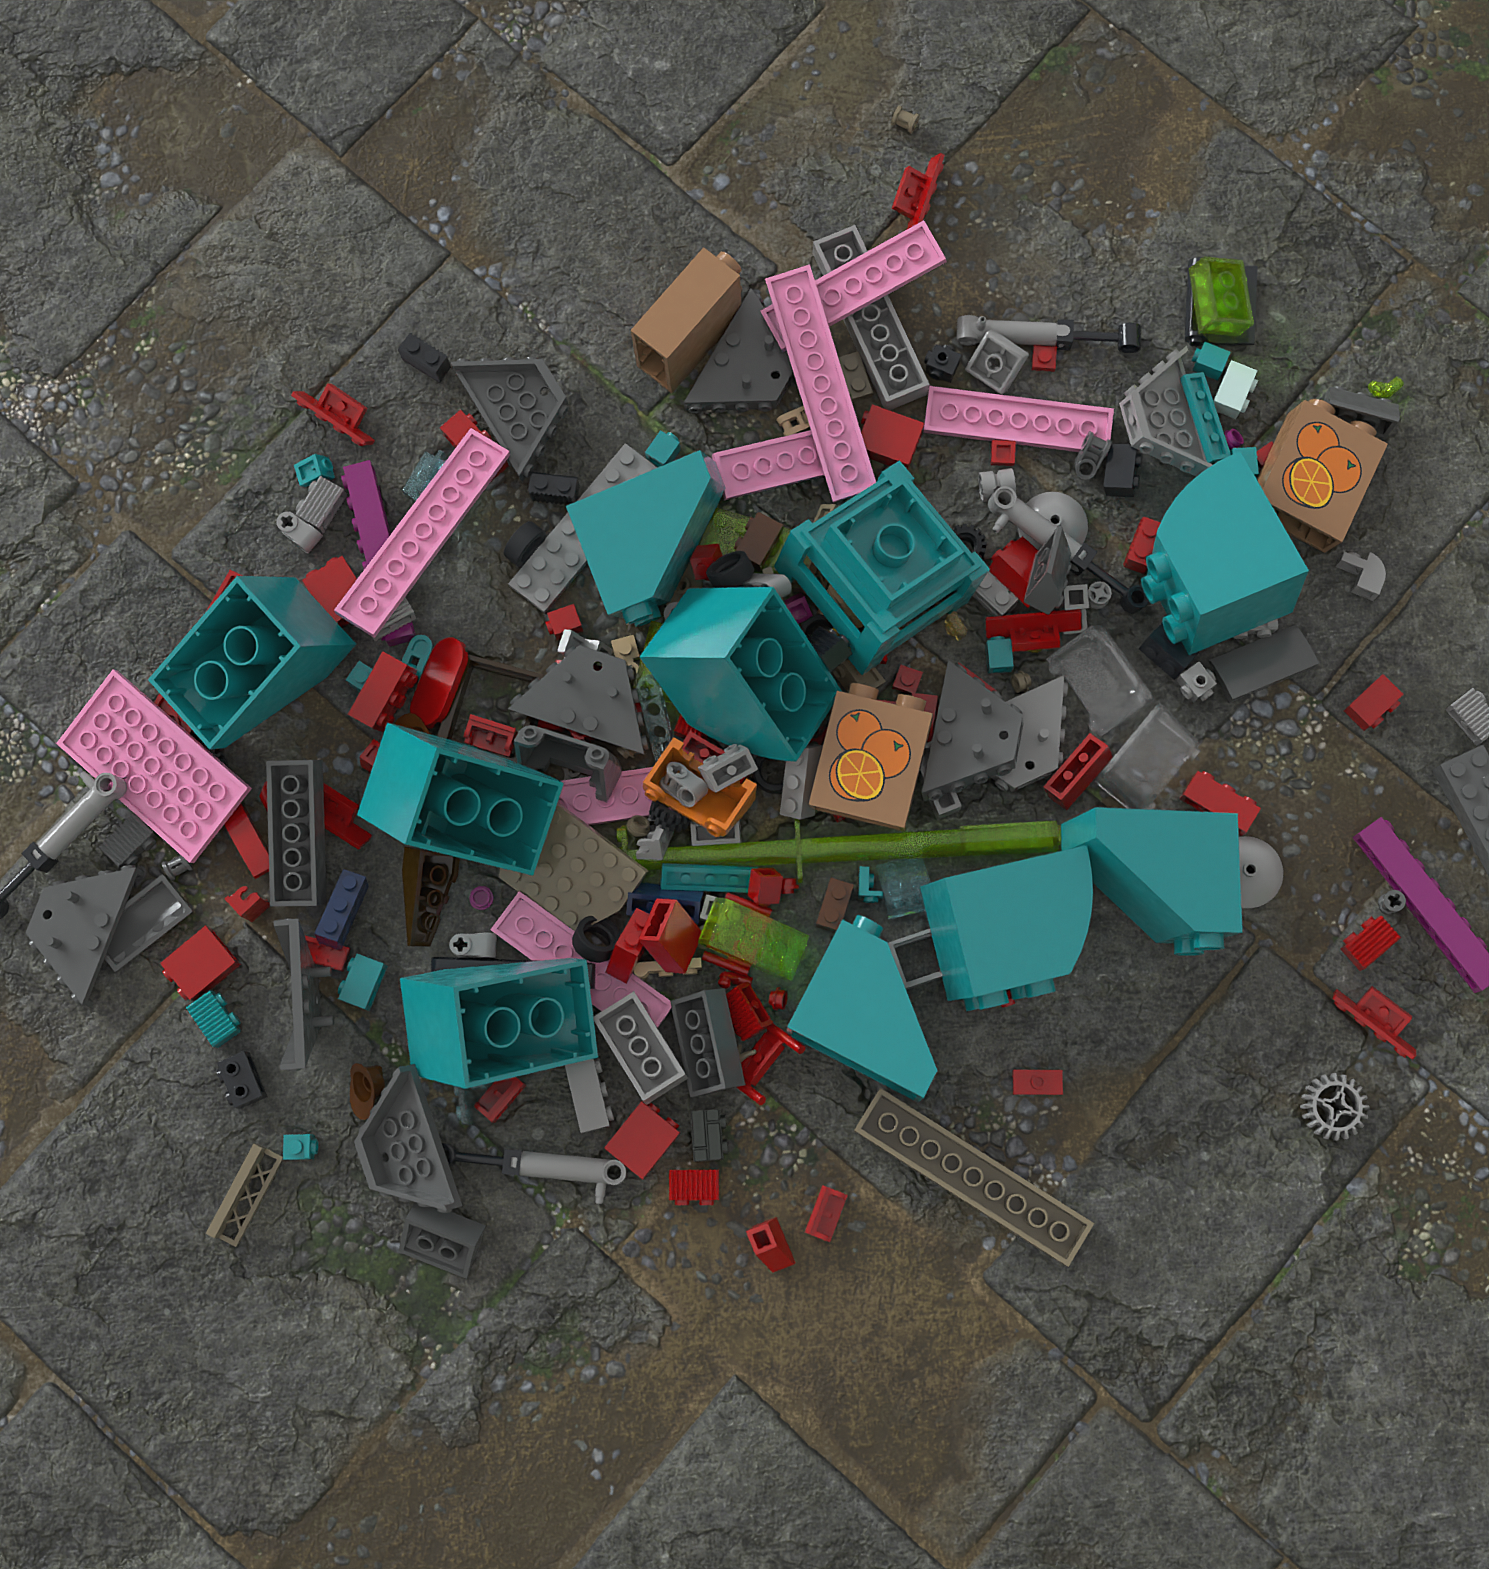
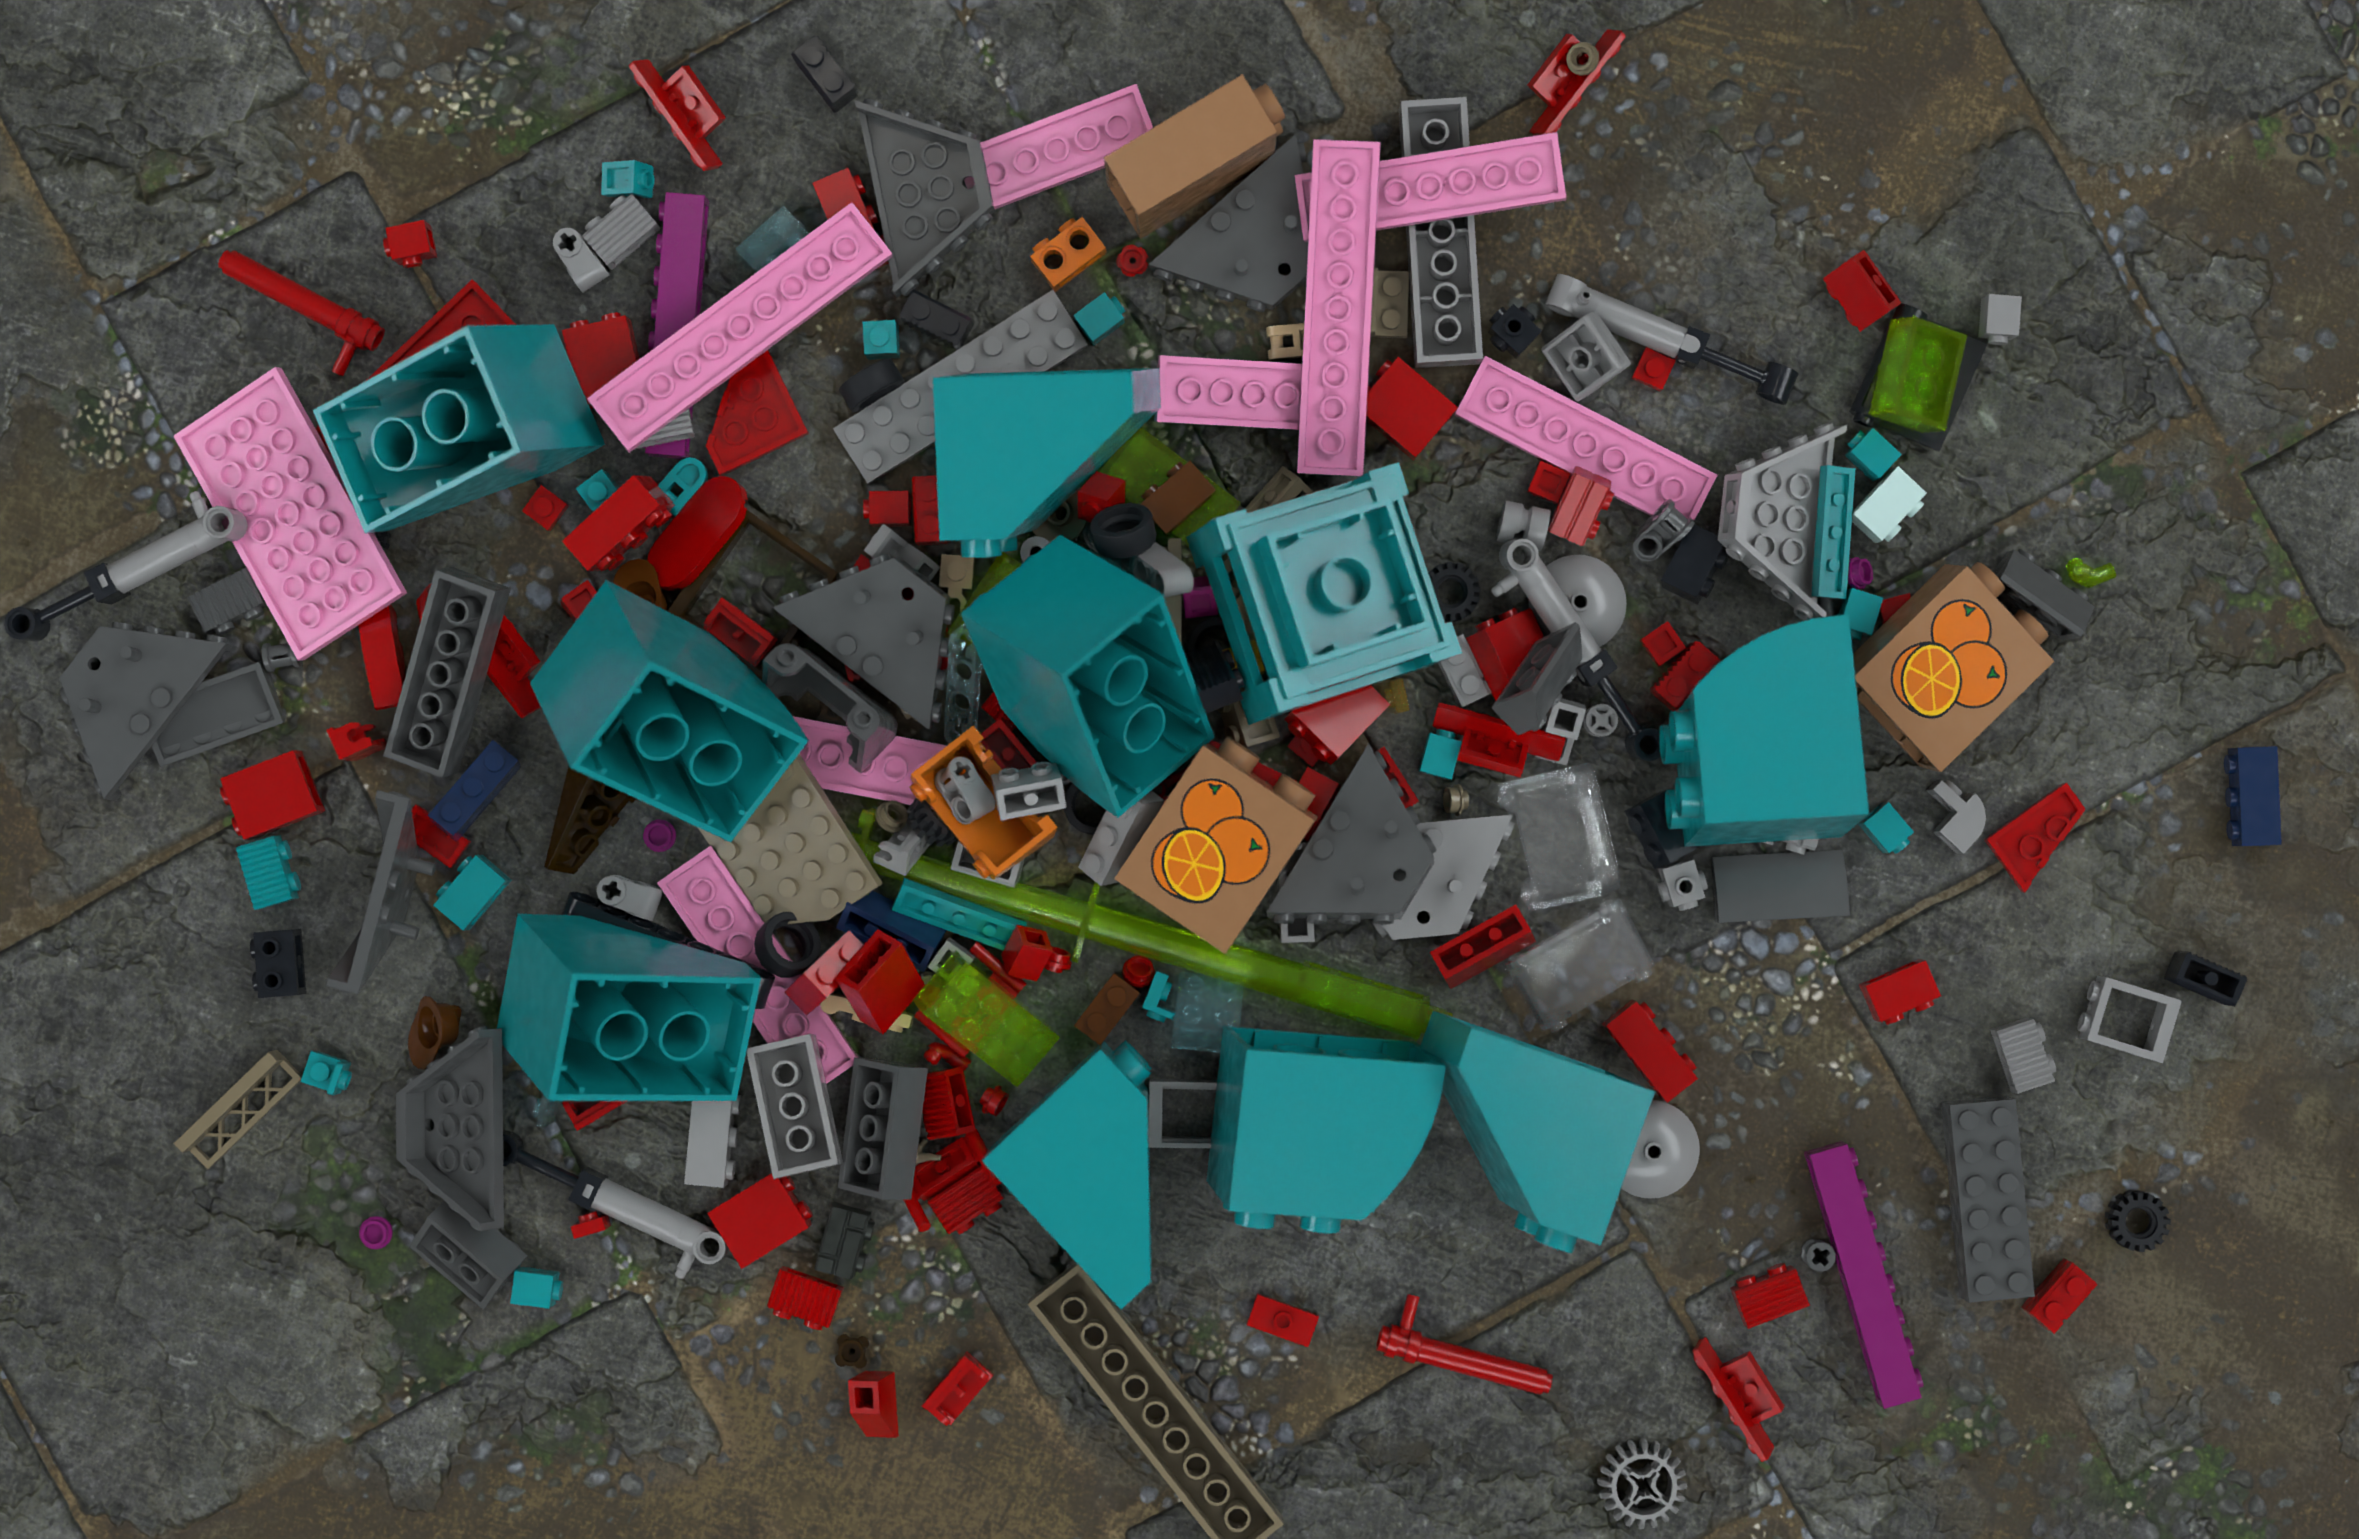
camera: 20 degrees right, 10 degrees up
(152, 628) = (346, 323): none -> red cylinder
(180, 561) = (410, 243): none -> red brick
(328, 704) = (545, 508): none -> red plate
(371, 1249) = (376, 1232): none -> magenta plate
(451, 593) = (753, 417): none -> red plate
(499, 1247) = (536, 1287): none -> teal brick
(520, 512) = (881, 339): none -> teal brick
(523, 1187) = (589, 1224): none -> red plate
(593, 613) = (926, 510): none -> red brick
(596, 351) = (1062, 146): none -> bright pink plate
(632, 418) = (1074, 260): none -> orange brick
(667, 403) = (1138, 254): none -> red plate
(734, 1211) = (858, 1358): none -> dark brown plate
(784, 1074) = (966, 1200): none -> red brick
(847, 872) = (1138, 971): none -> red plate
(917, 173) = (1576, 52): none -> dark tan plate
(920, 654) = (1337, 721): none -> red brick
(1030, 459) = (1580, 506): none -> brick
(1120, 530) = (1662, 643): none -> red plate
(1138, 1067) = (1414, 1347): none -> red cylinder
(1161, 260) = (1861, 291): none -> red brick
(1259, 246) = (1999, 318): none -> light grey brick
(1320, 598) = (1886, 828): none -> teal brick
(1420, 569) = (2034, 834): none -> red wing

